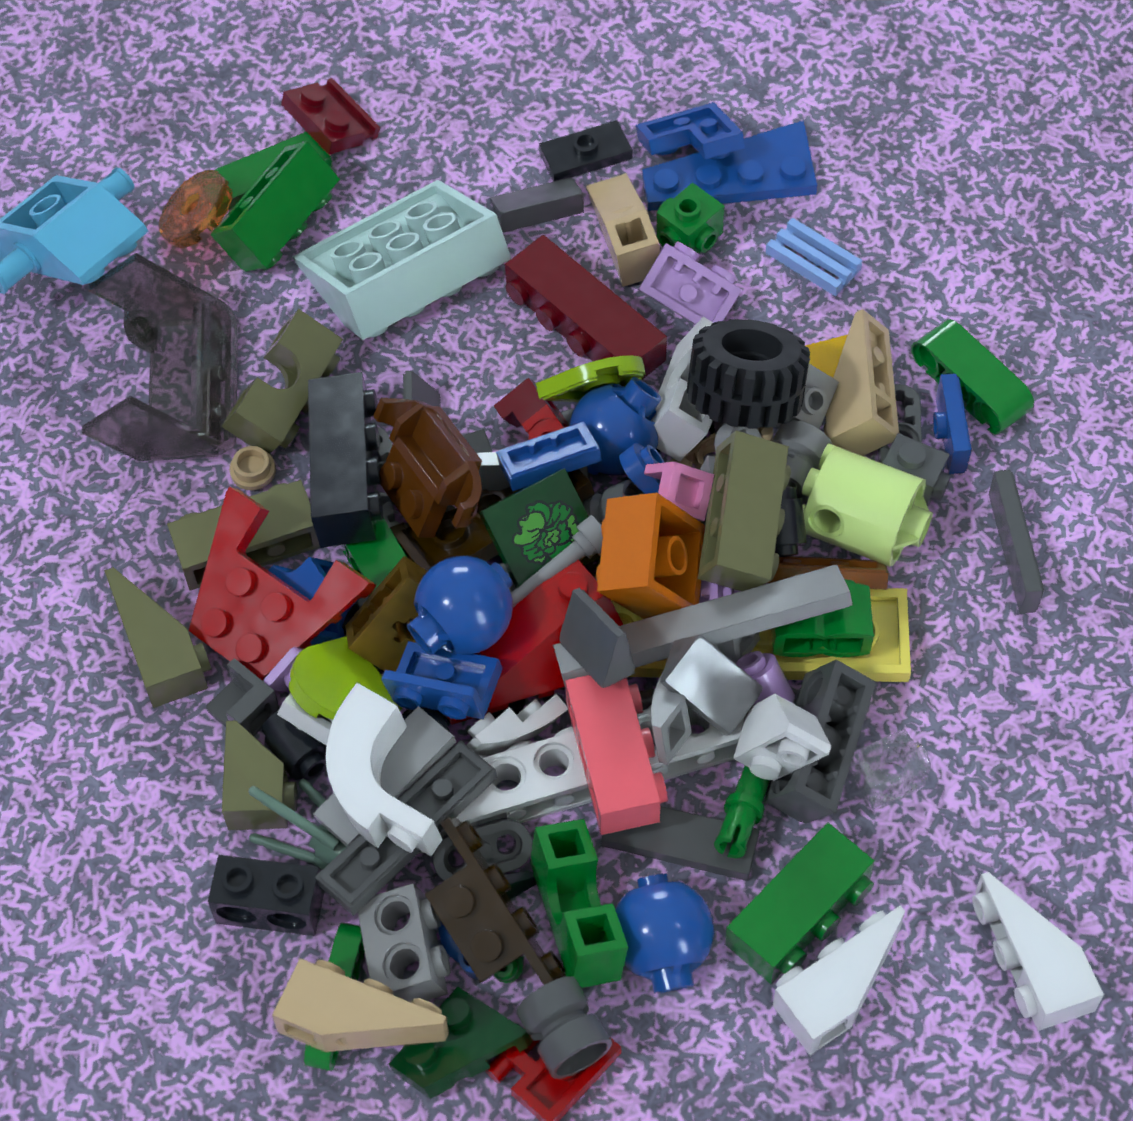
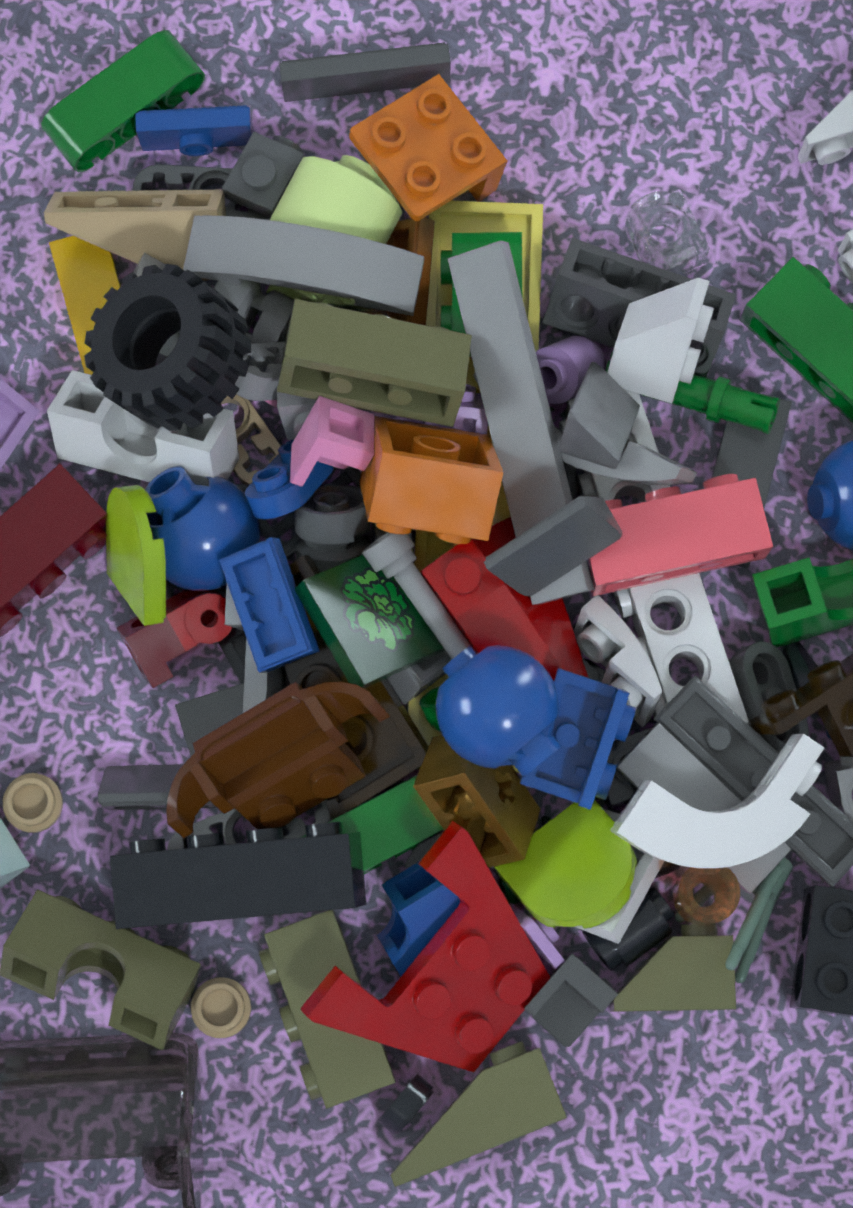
camera: 90 degrees left, 20 degrees up
(170, 590) = (406, 1104): none -> black tile
(309, 777) = (724, 888): none -> clear orange brick
(411, 344) = (32, 802): none -> tan plate
(829, 479) = (305, 260): none -> light grey slope
(944, 575) = (429, 149): none -> orange bracket

